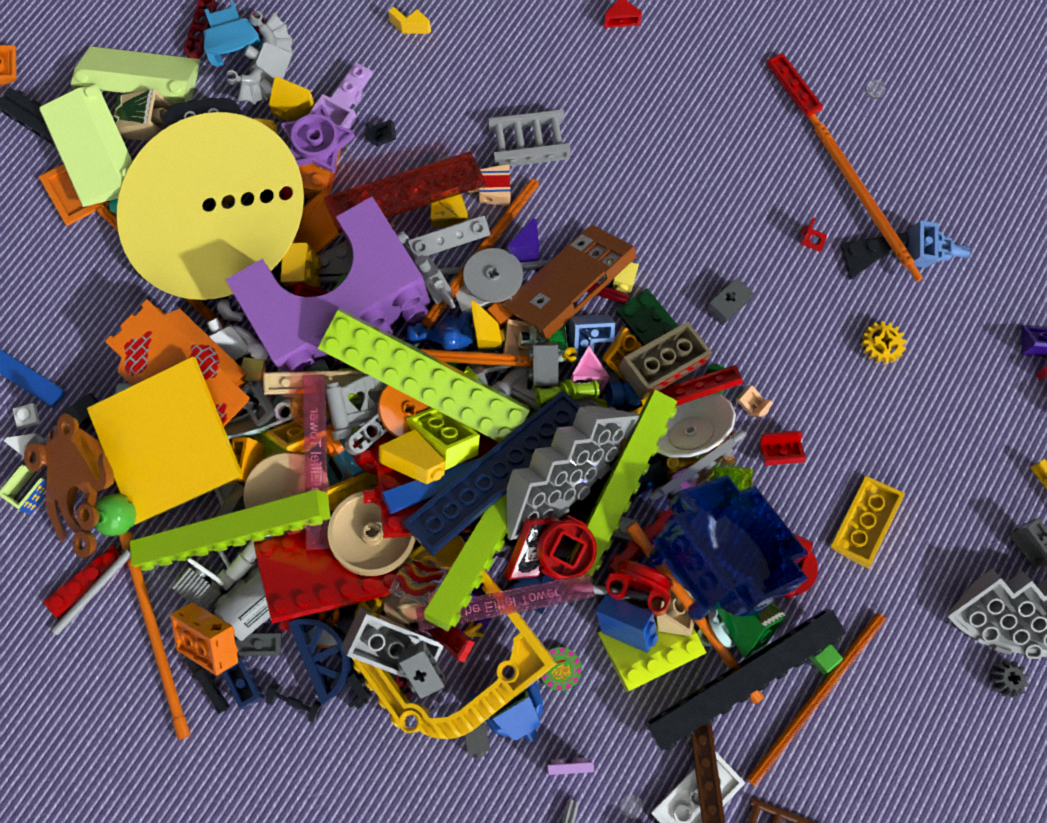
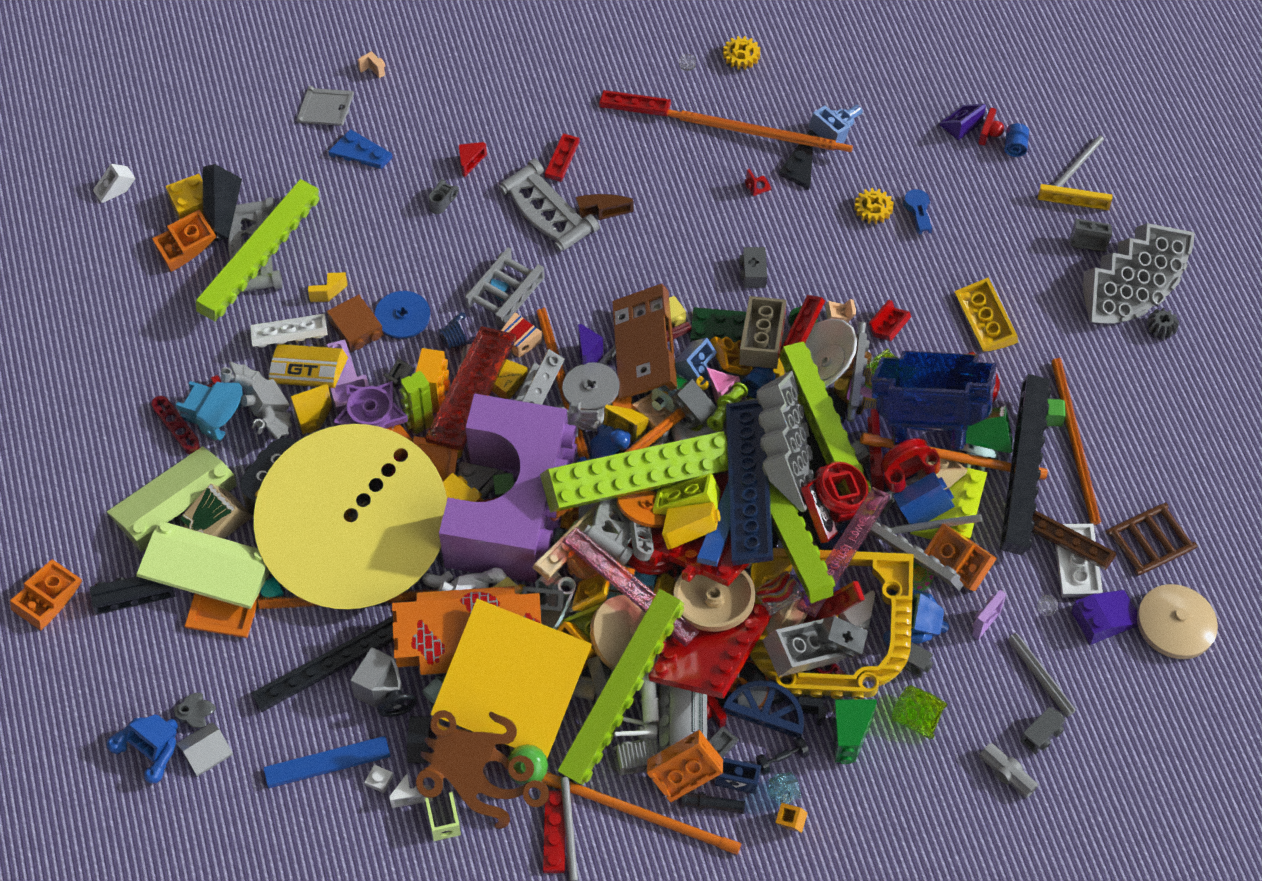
camera: 45 degrees left, 15 degrees down
(84, 296) = (323, 666): none -> black plate
(89, 343) = (380, 686): none -> light grey piece
(239, 759) = (791, 817): none -> light orange brick
(262, 730) = (784, 788): none -> clear light blue brick
(323, 66) = (307, 365): none -> yellow slope
(344, 27) = (288, 330): none -> white plate
(350, 162) = (416, 402): none -> lime brick
(359, 740) = (850, 726): none -> green slope
(385, 154) = (434, 367): none -> light orange brick
(396, 65) = (355, 323): none -> dark orange brick
(429, 781) = (918, 711): none -> clear neon green slope
(437, 103) = (415, 317): none -> blue piece
(448, 138) = (452, 333): none -> dark blue piece
(481, 657) = (861, 613): none -> white slope
(528, 135) = (500, 285): none -> dark azure tile
(566, 26) = (442, 196): none -> dark grey piece
(567, 662) = (929, 563): none -> light grey plate
(603, 696) = (962, 555): none -> orange slope
(611, 646) = (936, 524): none -> light grey piece
(634, 141) = (530, 178): none -> light grey piece
(673, 143) = (603, 205): none -> reddish brown slope
(689, 77) = (562, 157): none -> red plate
(924, 369) = (914, 199): none -> blue piece
(925, 119) = (741, 52): none -> yellow gear

